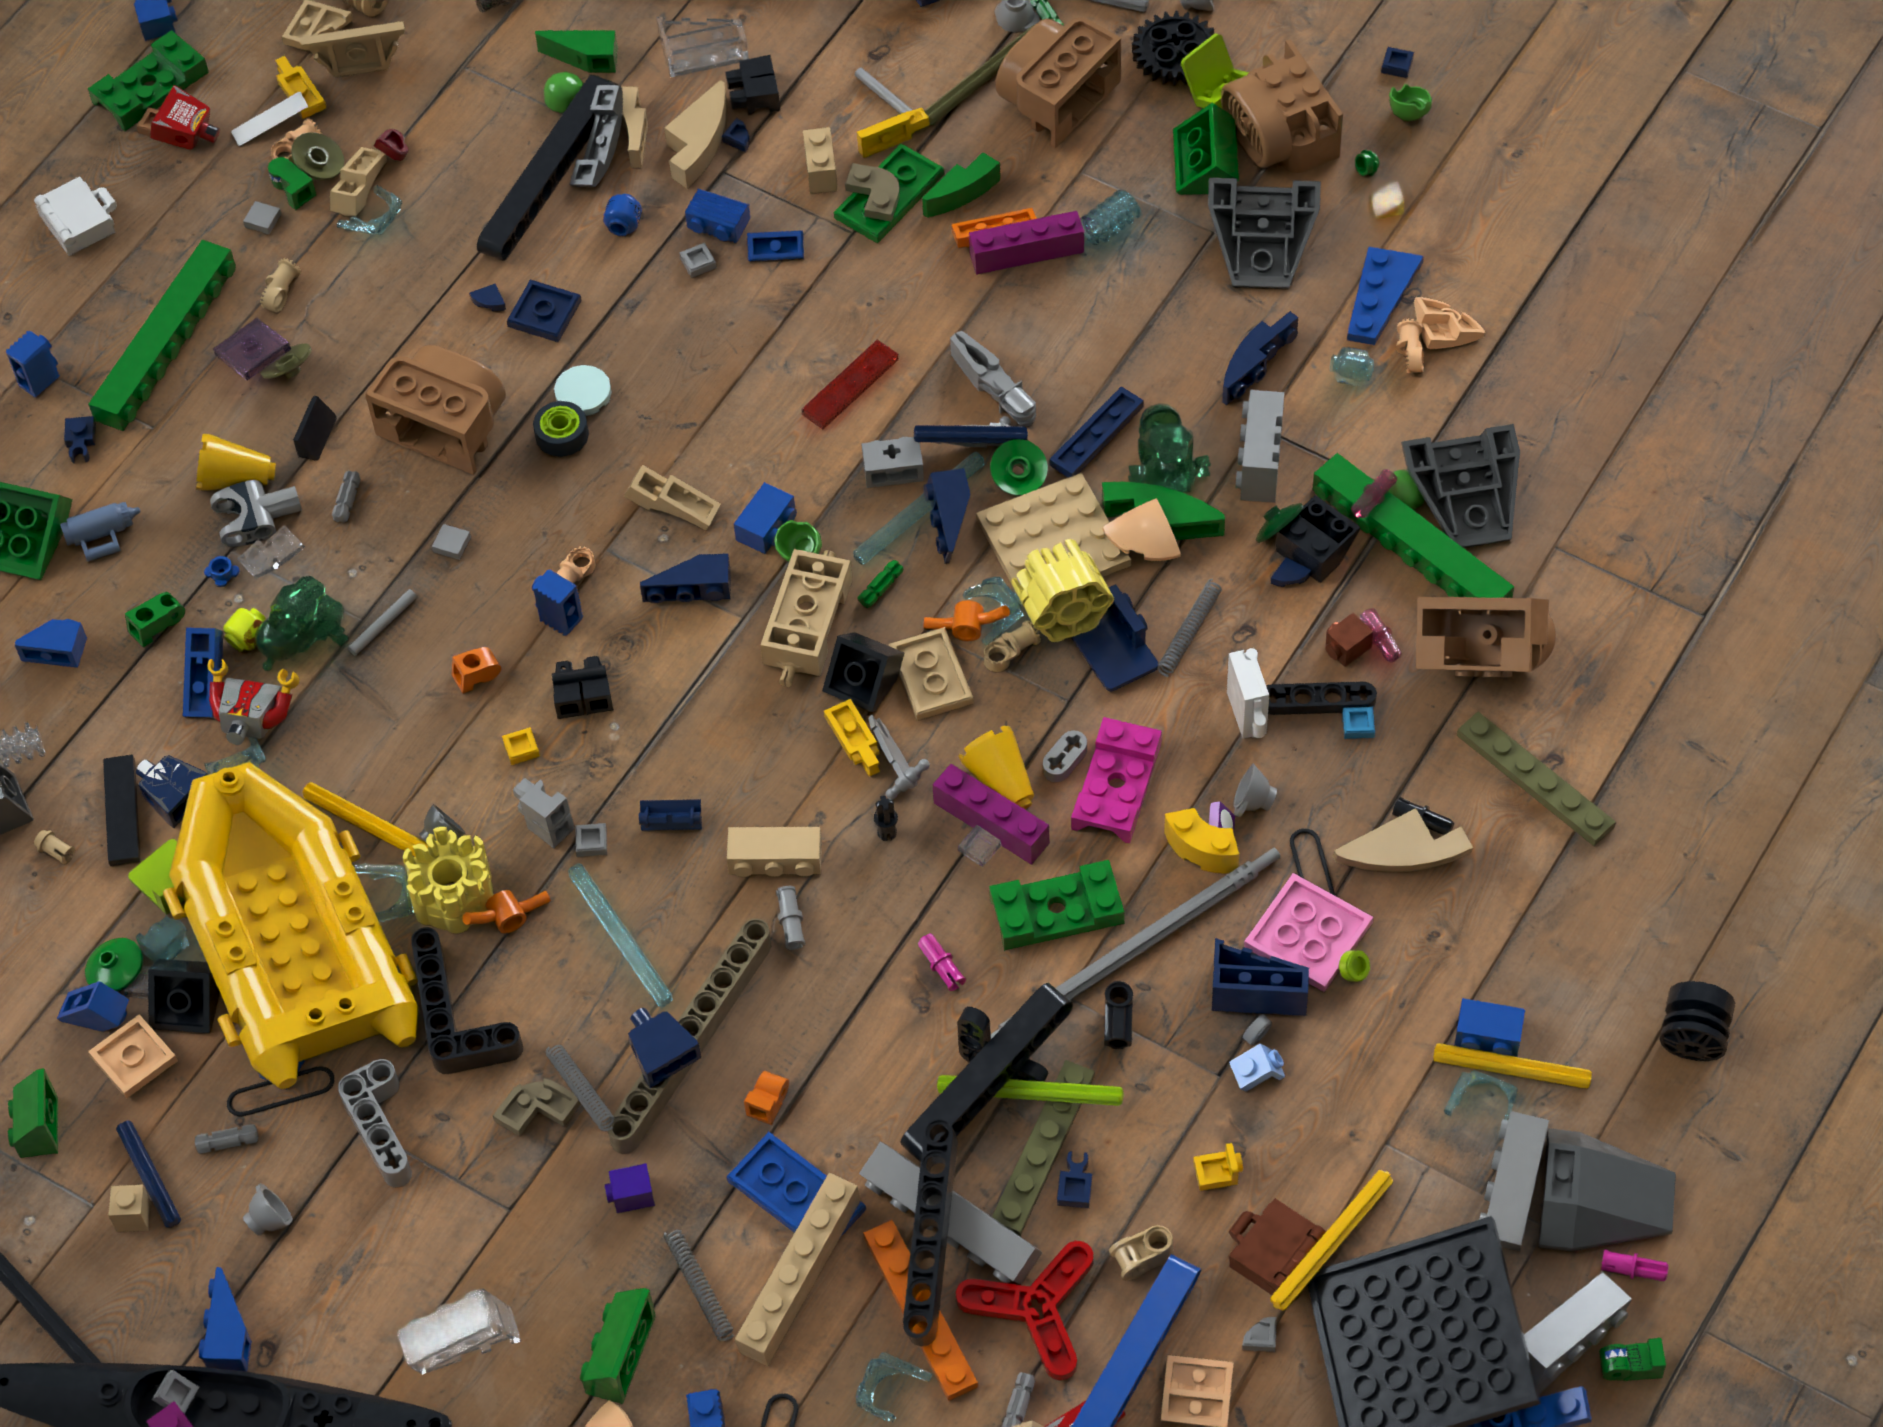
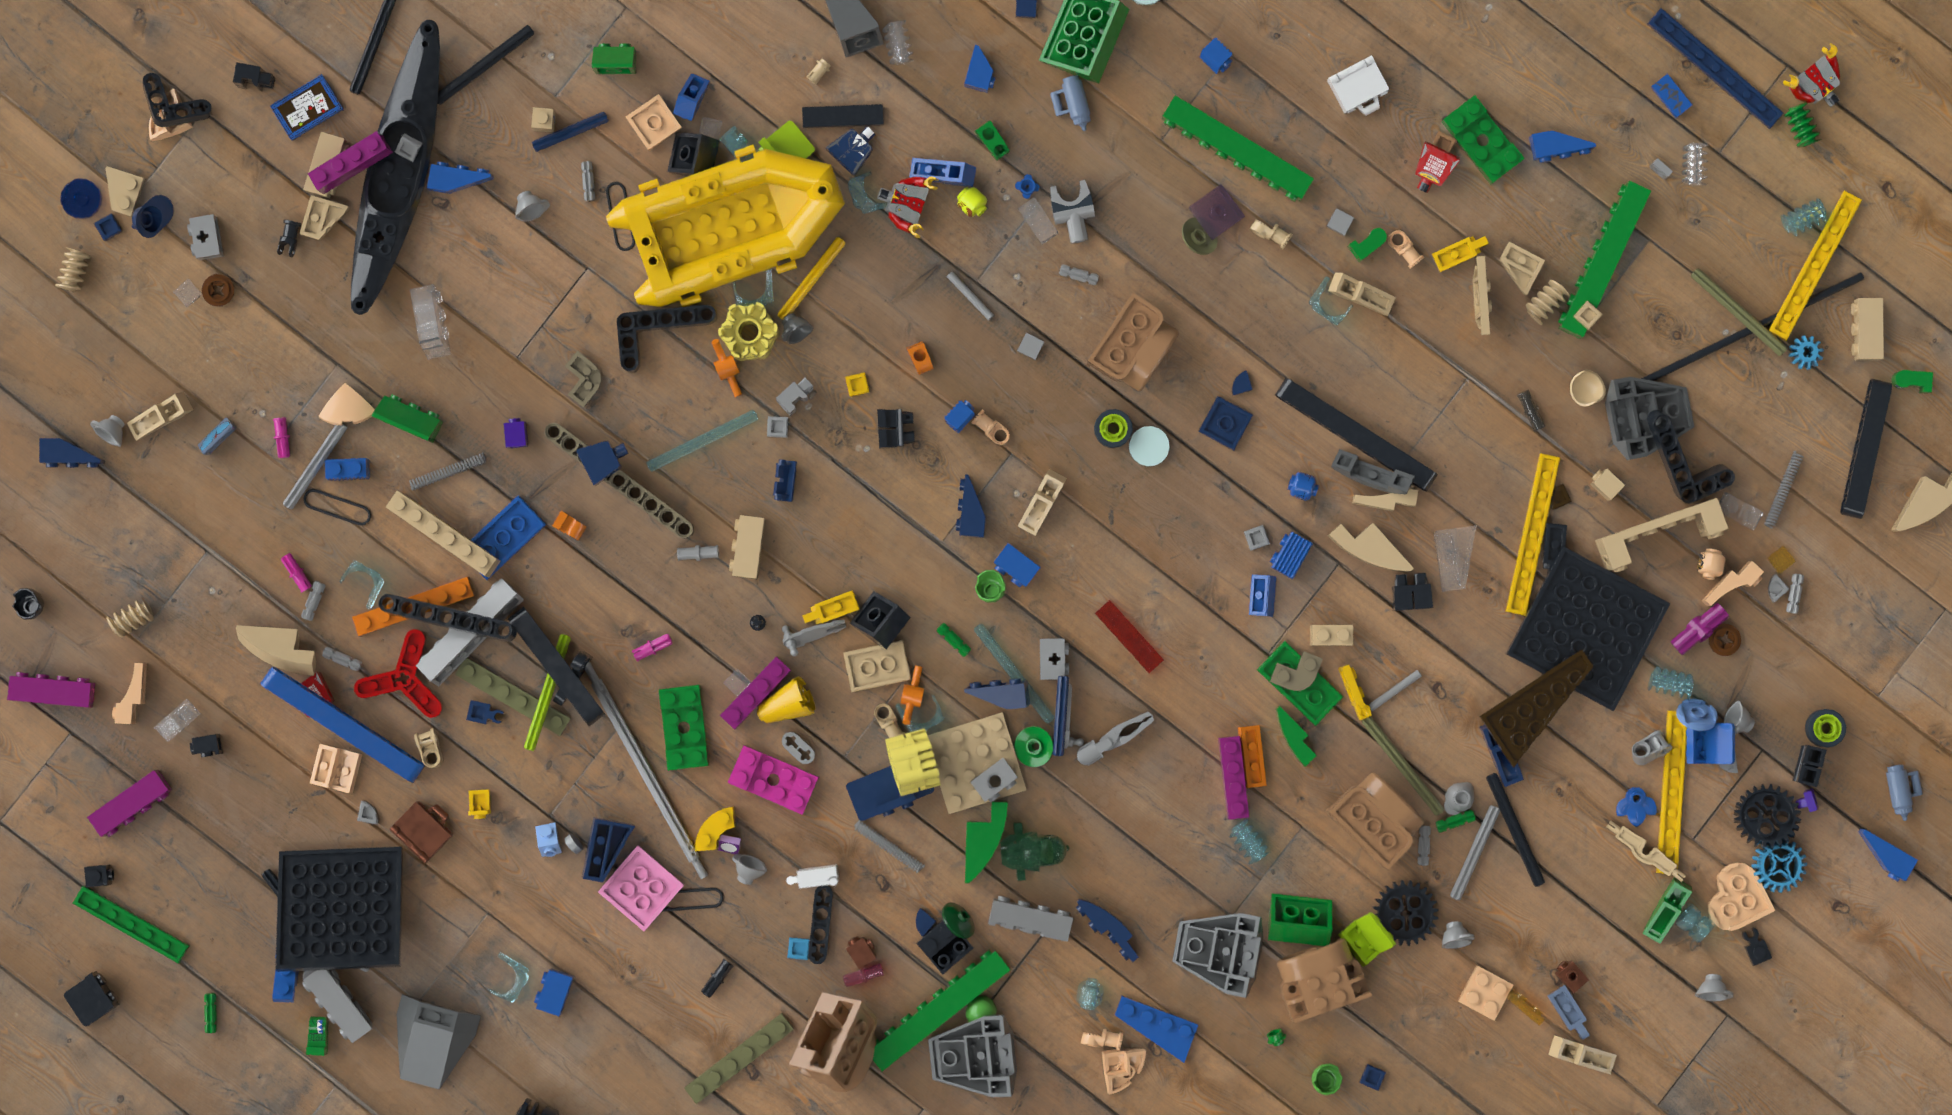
camera: 90 degrees right, 30 degrees up
(78, 435) = (1160, 88): dark blue plate -> none
(115, 963) = (720, 118): green dish -> none
(227, 463) = (1109, 195): yellow cone -> none
(269, 118) = (1432, 230): white sticker -> none
(299, 621) = (970, 238): clear green helmet -> none
(314, 429) = (1138, 255): black slope -> none
(317, 156) = (1387, 273): olive dish -> none
(378, 1127) = (580, 279): light grey beam -> none
(392, 144) = (1394, 320): dark red tile -> none
(561, 90) = (1429, 450): bright green hair -> none
(577, 1093) = (578, 414): light grey piece -> none
(584, 49) = (1464, 472): green slope -> none
(737, 136) = (1370, 577): dark blue tile -> none
(796, 636) = (951, 594): tan brick -> none
(1077, 513) = (982, 784): none -> light grey brick
(1096, 432) = (1059, 805): dark blue plate -> none
(1118, 1016) = (593, 756): black piece -> none
(1145, 532) = (962, 825): light nougat brick -> none
(1331, 1240) = (420, 867): yellow axle -> none
(1354, 965) = (611, 913): lime tile -> none
(1374, 493) = (966, 988): clear pink axle -> none
(1388, 201) = (1239, 1045): clear yellow slope -> none
(1403, 847) = (692, 960): tan slope -> none
(1512, 1065) = (528, 1002): yellow axle -> none
(1515, 1176) = (443, 987): light grey wedge -> none
(1634, 1266) = (380, 1050): dark pink axle -> none

